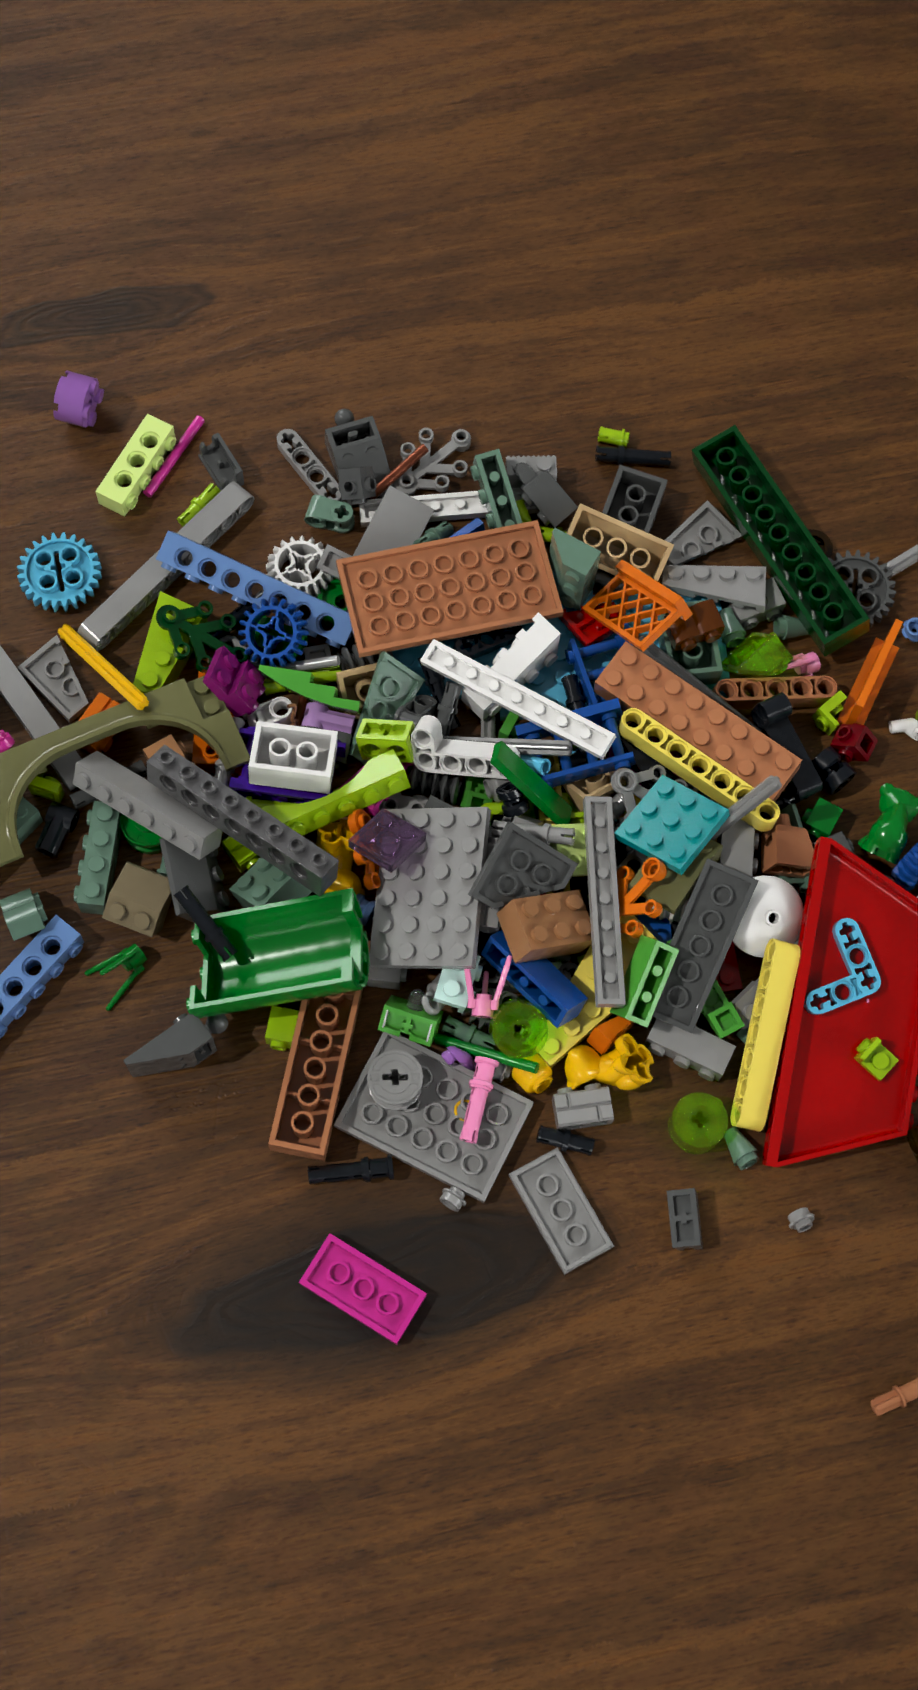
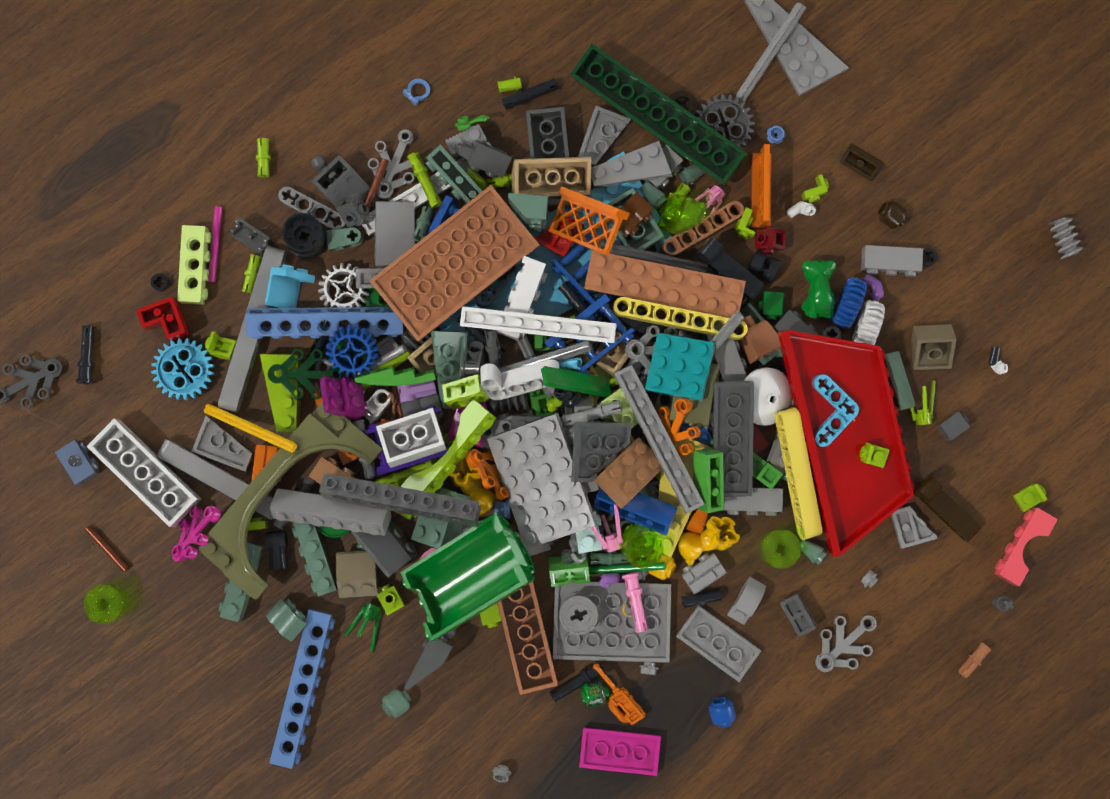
camera: 20 degrees left, 15 degrees up
(72, 501) = (165, 314): none -> red brick
(77, 399) = (128, 237): medium lavender brick -> none
(84, 461) = (156, 278): none -> black bush
(103, 1085) = (396, 703): none -> sand green head
(116, 566) = (220, 346): none -> lime bracket
(169, 962) = (397, 602): none -> lime brick
(192, 1242) = (501, 773): none -> light grey plate
(213, 933) = (417, 578): black pin -> none
(234, 530) = (285, 286): none -> medium azure bracket
(281, 388) = (263, 157): none -> lime pin
(284, 487) = (304, 225): none -> black wheel
(366, 1196) = (594, 693): none -> green head
(387, 840) = (500, 465): clear purple plate -> none
(401, 1220) = (622, 698): none -> orange piece
(459, 481) = (421, 173): none -> lime pin
(492, 405) = (407, 92): none -> medium blue piece
(524, 1301) = (722, 712): none -> blue head
(541, 450) = (465, 123): none -> bright green plate
(623, 1170) = (747, 600): none -> light grey brick
(727, 1292) = (843, 645): none -> light grey plant
(883, 1179) = (910, 528): none -> light grey wing

